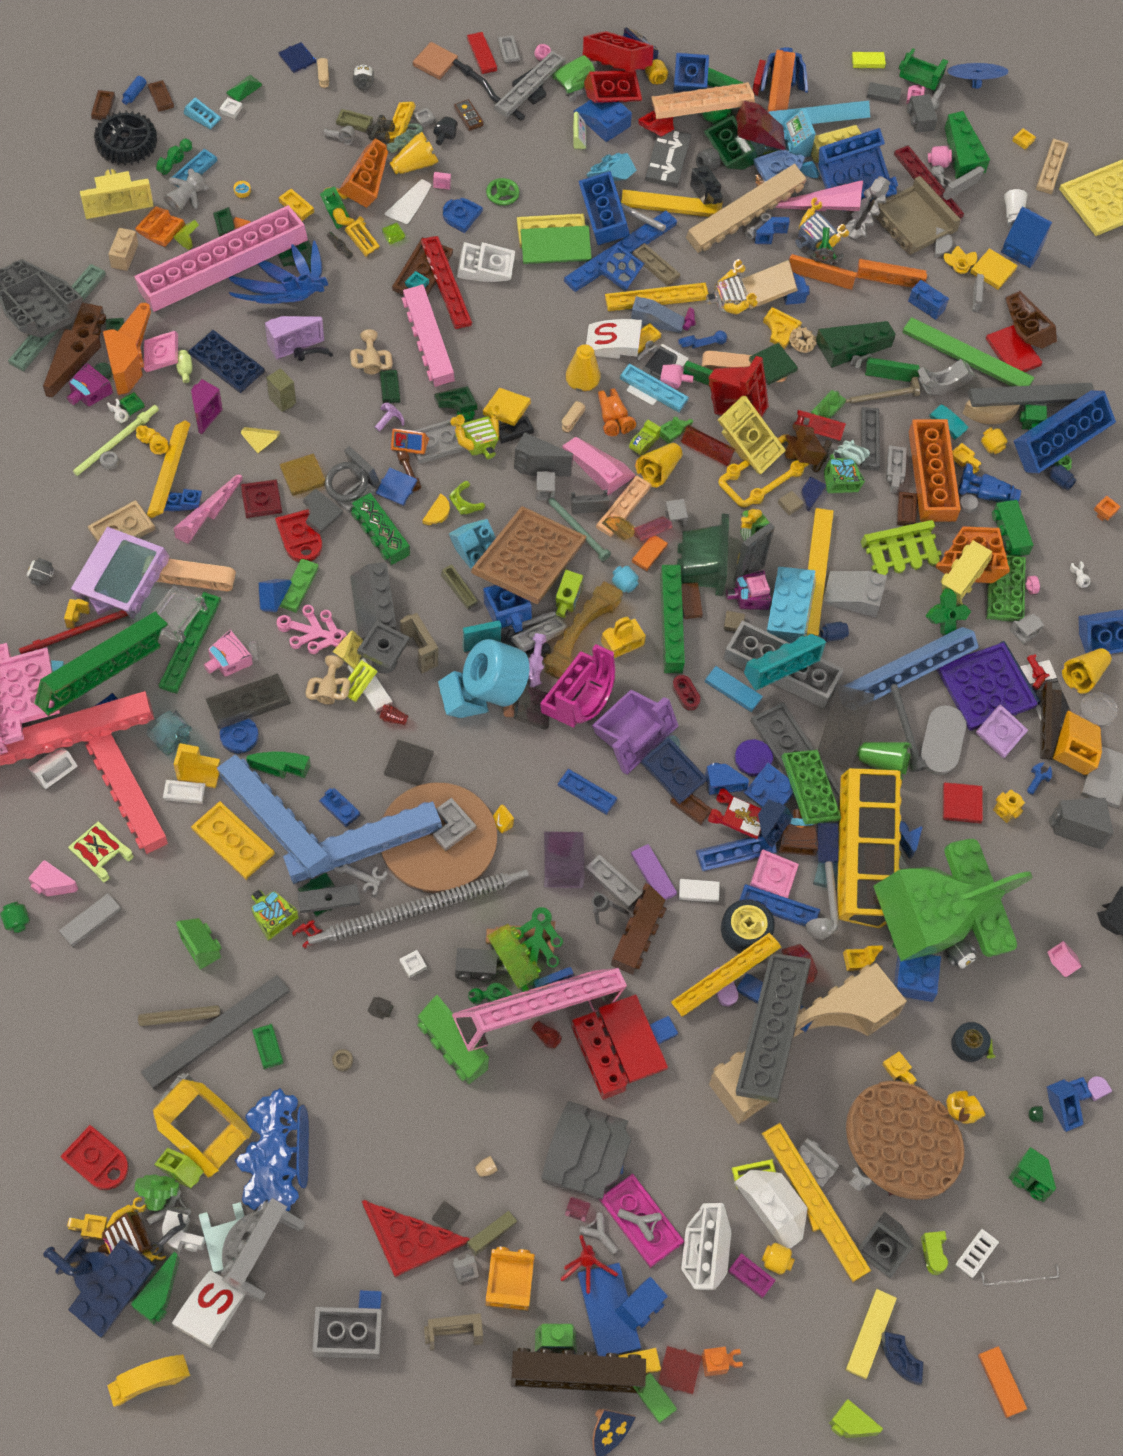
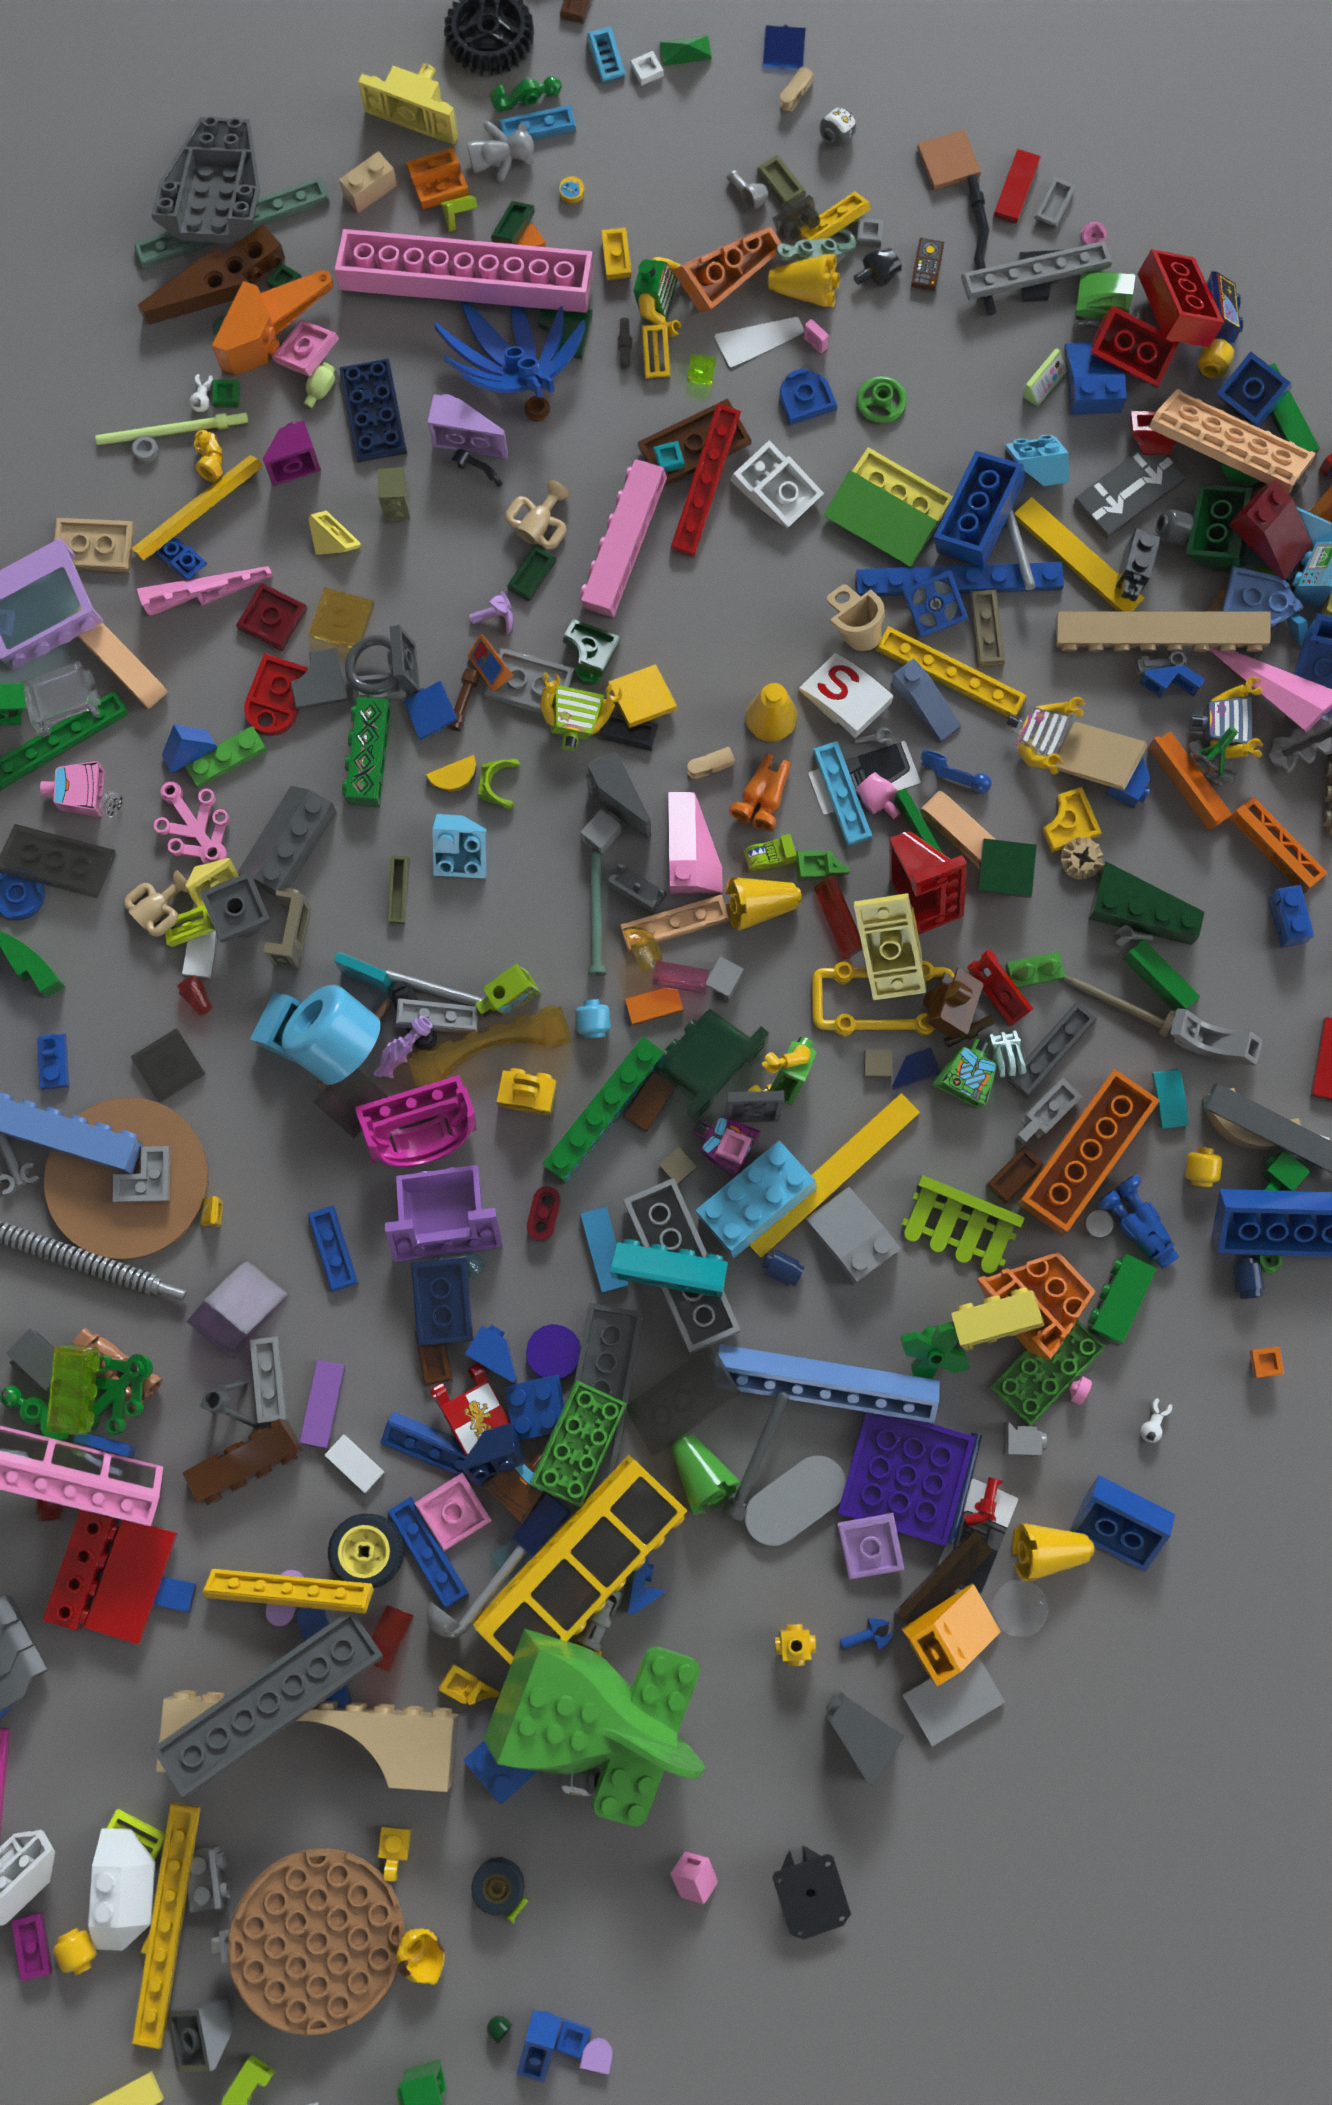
camera: 45 degrees right, 15 degrees up
(89, 386) = (190, 338): magenta torso -> none
(320, 304) = (537, 408): none -> reddish brown plate
(507, 607) = (426, 955): blue hinge -> none
(529, 555) = (499, 910): medium nougat plate -> none
(590, 295) = (858, 618): none -> tan container
(648, 333) = (895, 718): yellow tile -> none
(689, 319) = (965, 731): magenta bar -> none
(962, 803) = (748, 1595): red tile -> none
(964, 455) = (1147, 1158): yellow plate -> none
(969, 354) = (1276, 1028): bright green tile -> none

